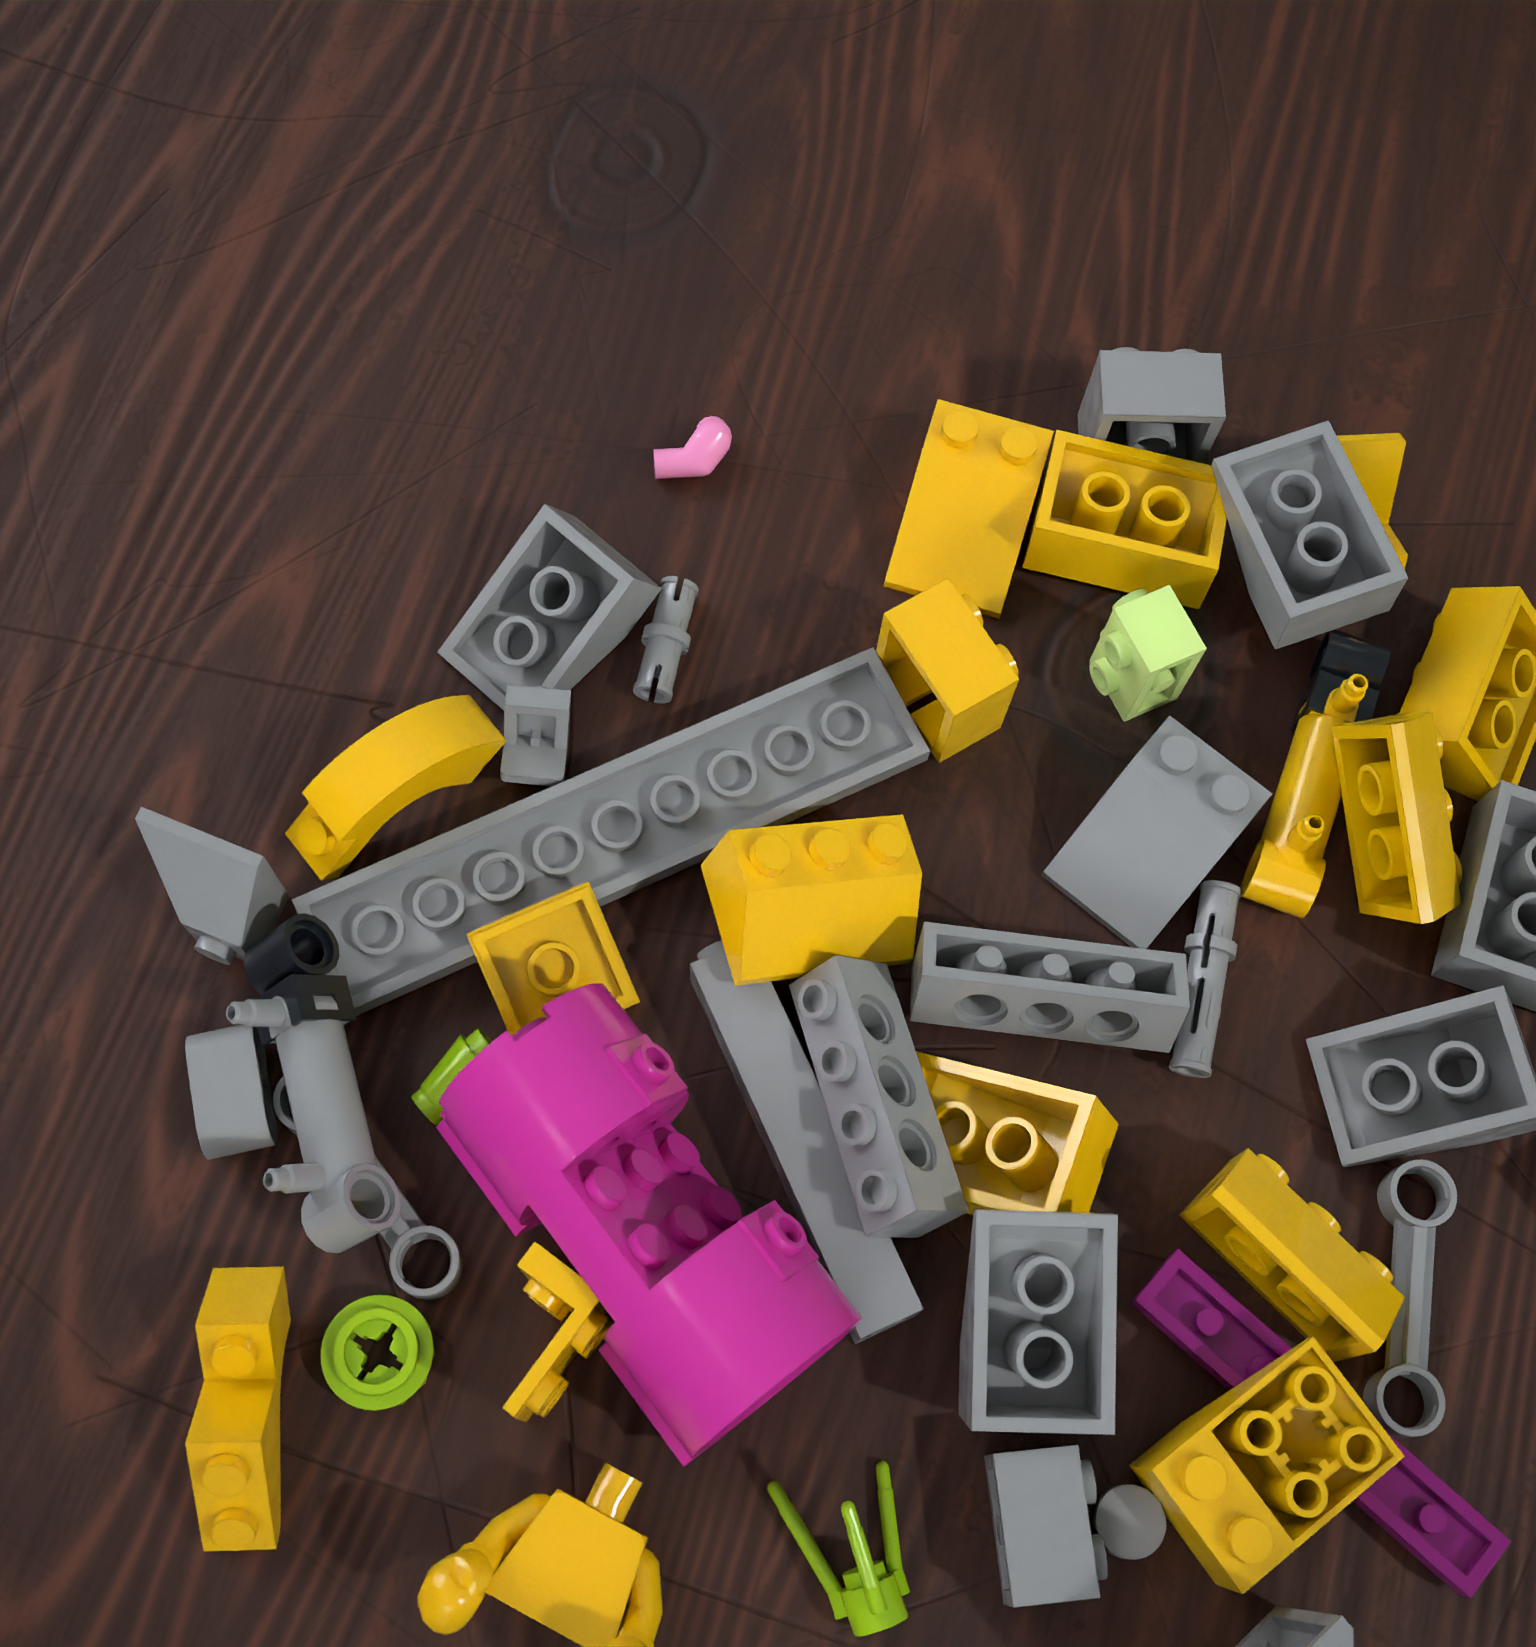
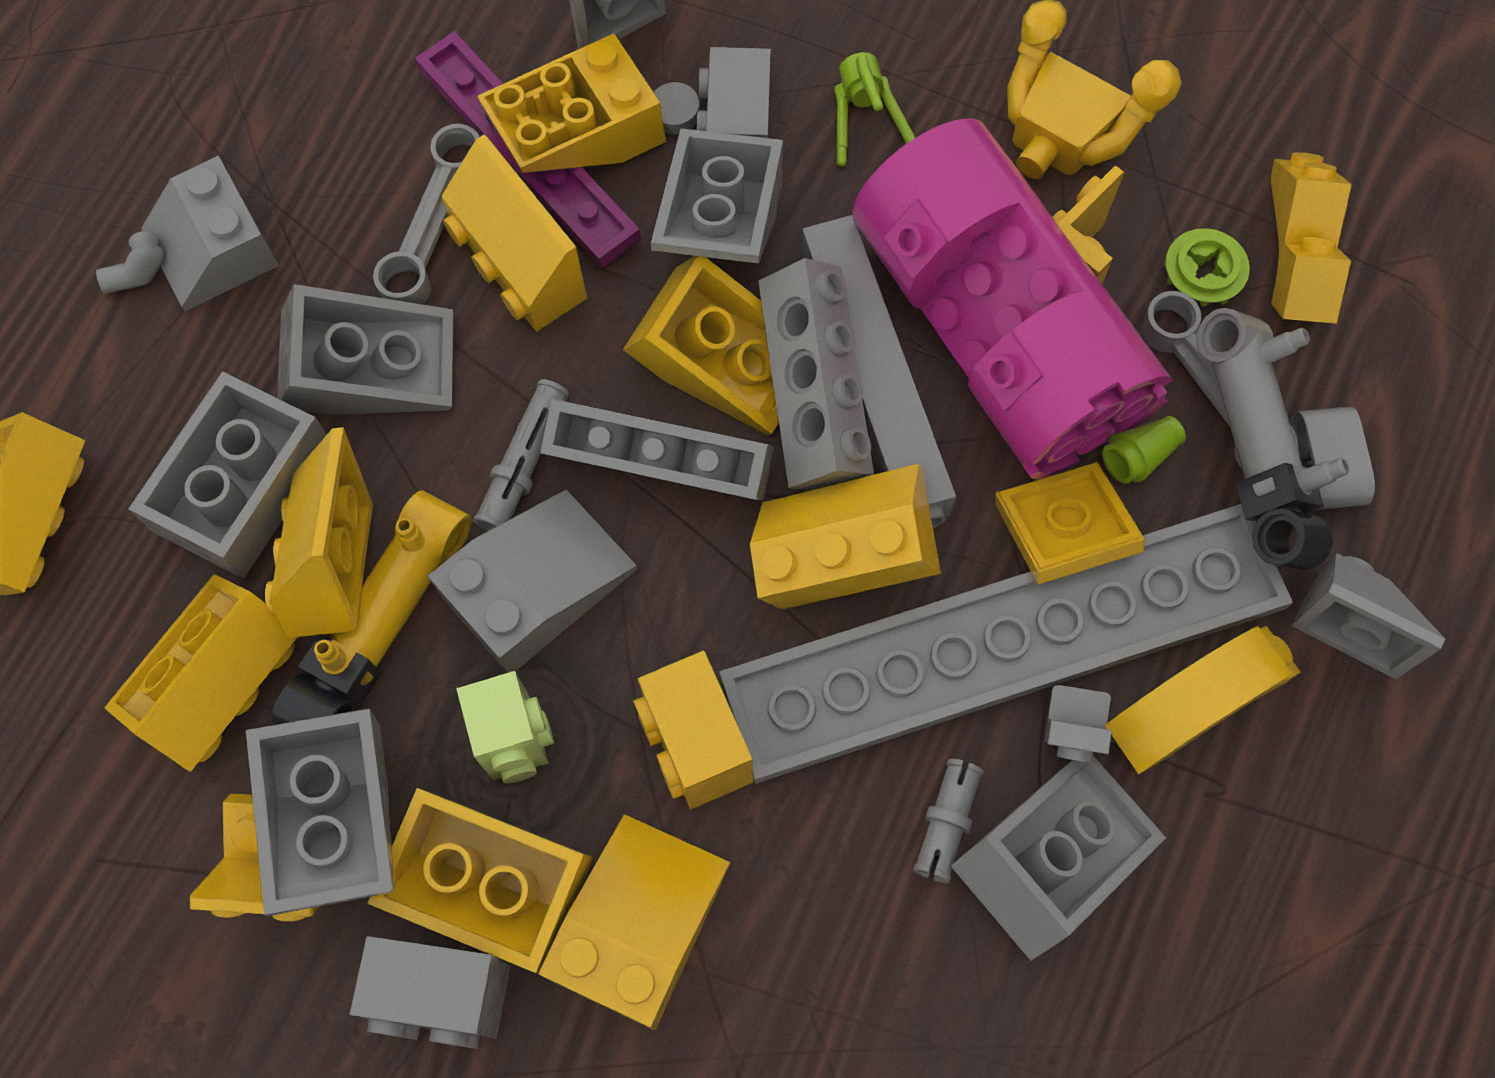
camera: 165 degrees left, 0 degrees up
(700, 453) = (897, 1025): bright pink arm -> none

